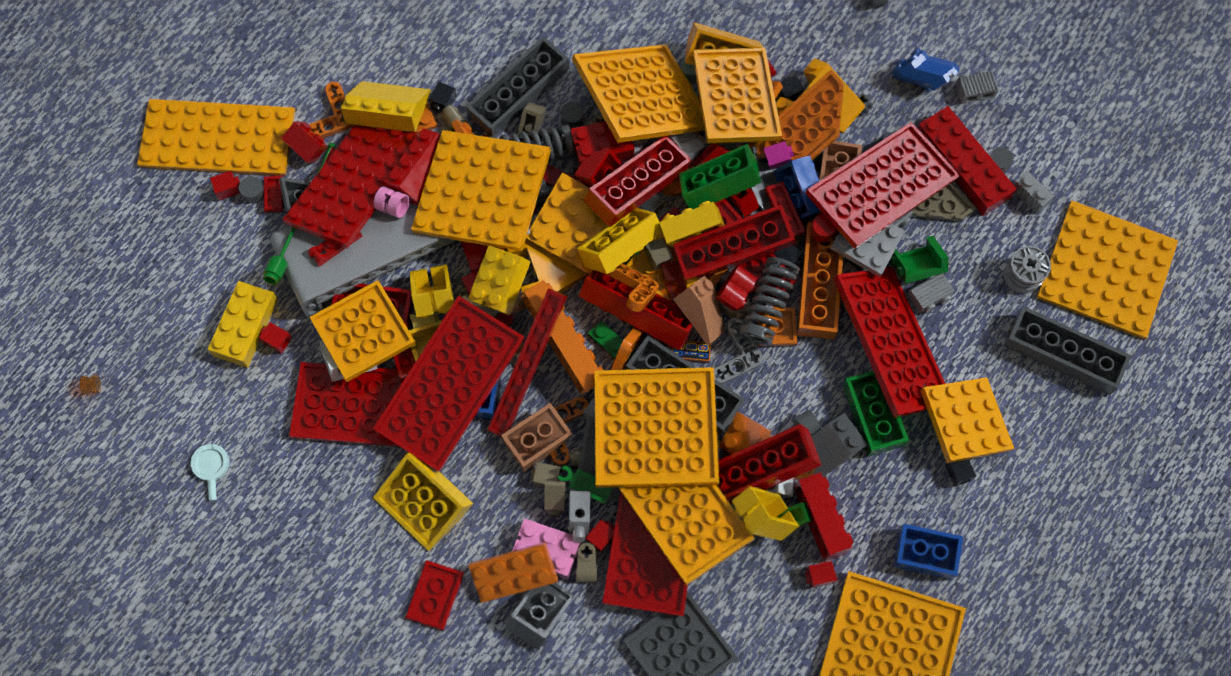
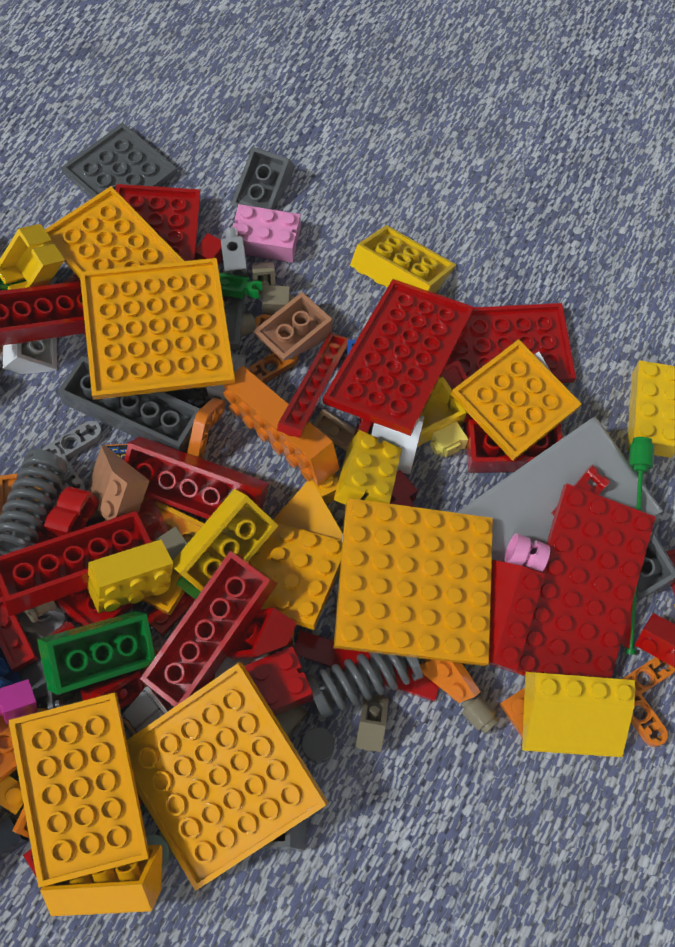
camera: 170 degrees right, 5 degrees down
(210, 464) = (633, 272): light aqua piece -> none
(275, 337) = (614, 400): red brick -> none
(434, 298) = (448, 461): yellow piece -> none
(434, 595) = (370, 189): red tile -> none
(442, 96) = (503, 743): black brick -> none
(513, 572) = (294, 201): orange plate -> none
(517, 87) = (400, 774): dark grey brick -> none
(586, 567) = (219, 222): dark tan piece -> none
(607, 339) = (227, 453): green plate -> none
(644, 287) = (192, 502): orange beam -> none
(743, 433) = (55, 359): orange plate -> none

